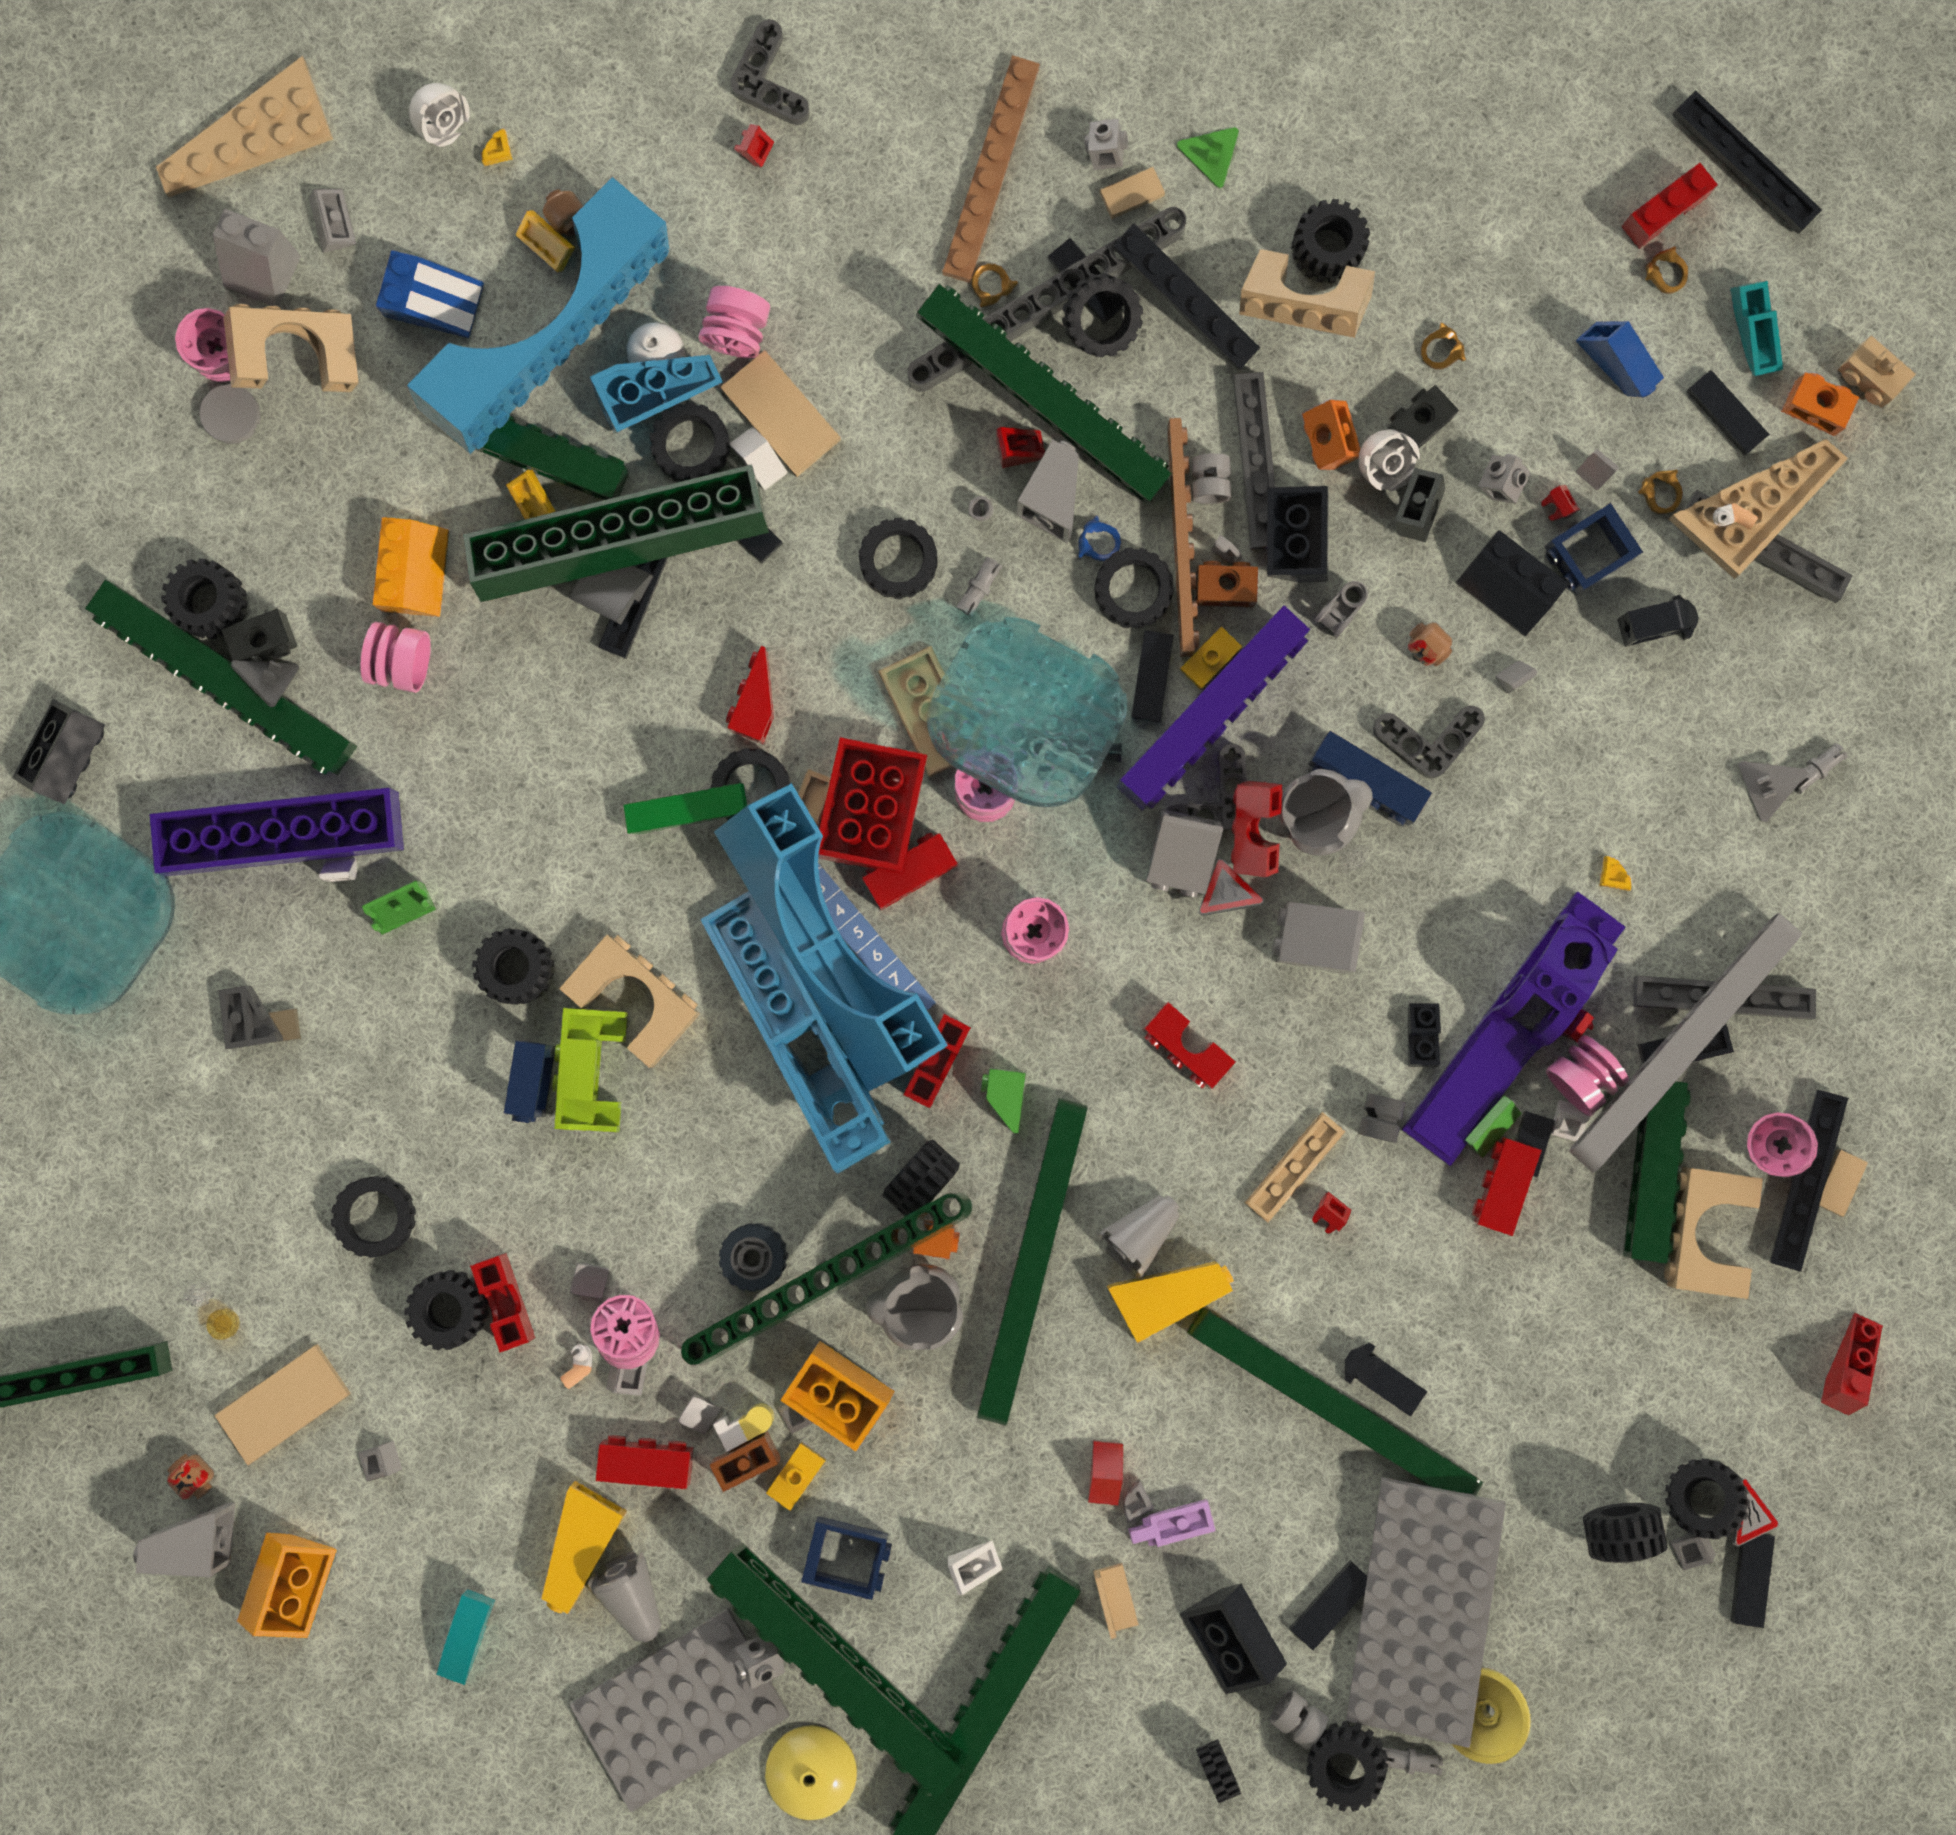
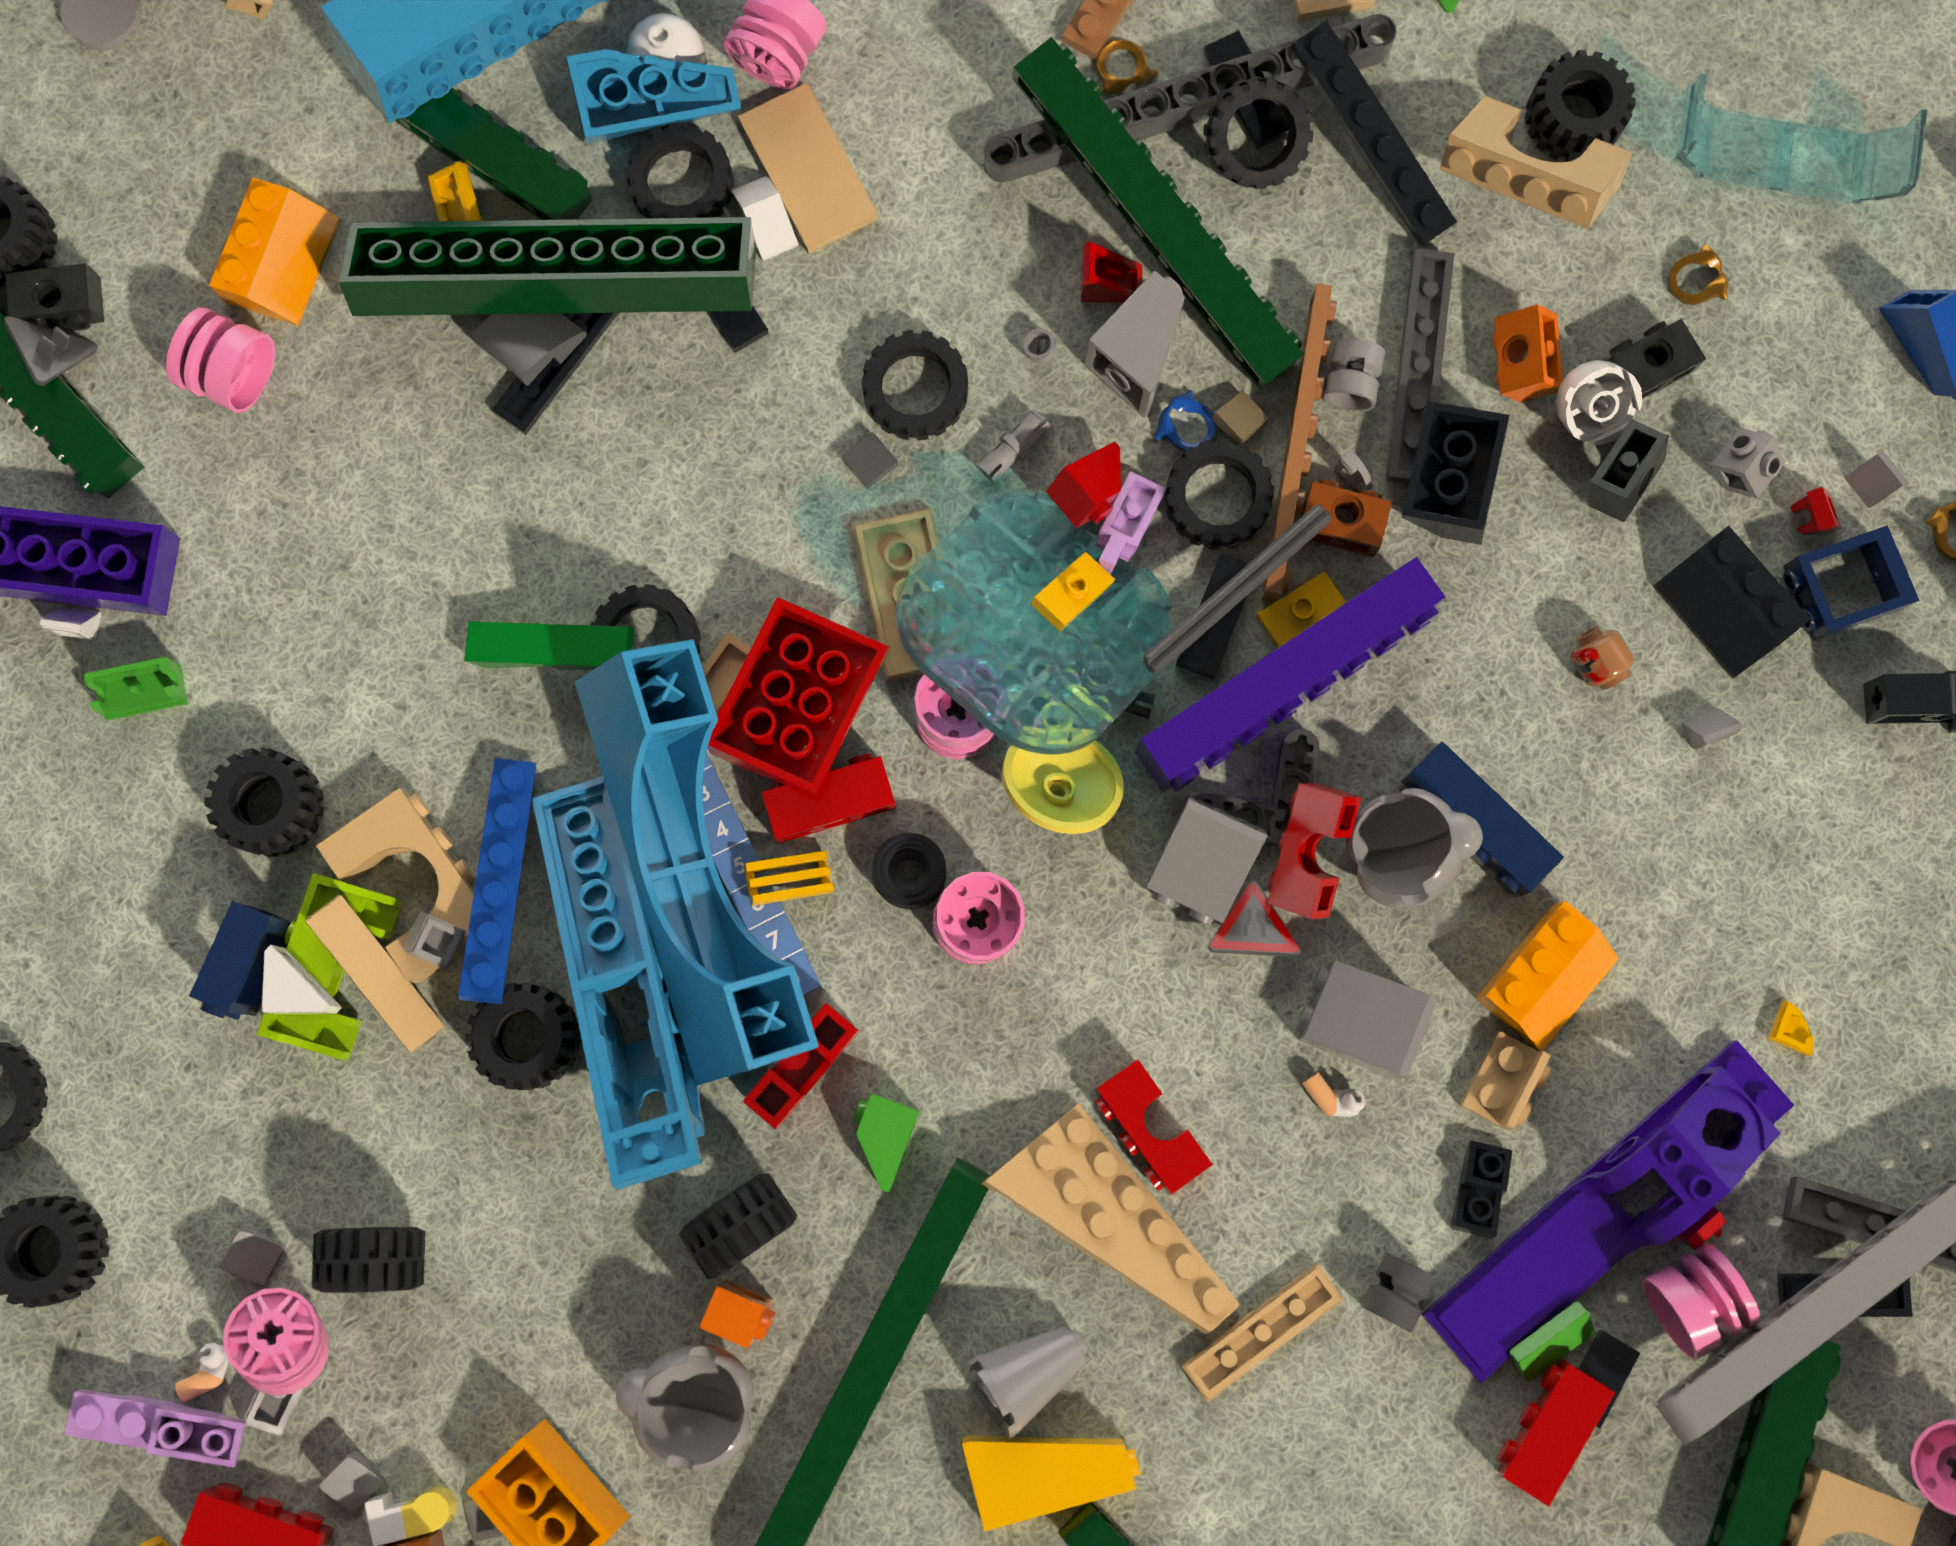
camera: 15 degrees right, 5 degrees down
(510, 1319) = (130, 1282): red arch -> none
(556, 1408) = (157, 1426): none -> lavender slope
(572, 1091) = (291, 988): none -> white slope
(624, 1067) = (374, 973): none -> tan tile
(659, 1034) = (433, 940): none -> light grey slope
(673, 1262) = (368, 1259): none -> black tyre
(693, 983) = (497, 882): none -> blue plate
(712, 1081) = (557, 1048): none -> black tyre
(734, 1257) = (457, 1282): black wheel -> none
(754, 708) = (677, 533): red slope -> none
(839, 1277) = (588, 1334): dark green beam -> none
(878, 620) = (869, 460): none -> dark grey tile
(917, 923) = (822, 872): none -> yellow tile
(978, 891) = (905, 847): none -> black tyre
(1041, 605) = (1088, 486): none -> red slope
(1047, 684) = (1072, 591): none -> yellow plate
(1073, 623) = (1128, 520): none -> lavender hinge
(1088, 819) = (1085, 780): none -> light yellow dish
(1136, 528) = (1240, 418): none -> dark tan tile
(1162, 656) = (1236, 589): none -> dark grey axle
(1164, 1107) = (1100, 1206): none -> tan wing
(1309, 999) = (1333, 1101): none -> arm
(1333, 1212) = (1301, 1409): red tile -> none
(1340, 611) = (1489, 587): light grey piece -> none
(1425, 957) = (1506, 1082): none -> tan bracket
(1435, 750) = (1580, 802): dark grey beam -> none
(1439, 877) = (1549, 975): none -> light orange slope
(1493, 240) = (1796, 155): none -> clear light blue windscreen
(1569, 1121) = (1660, 1360): white slope -> none

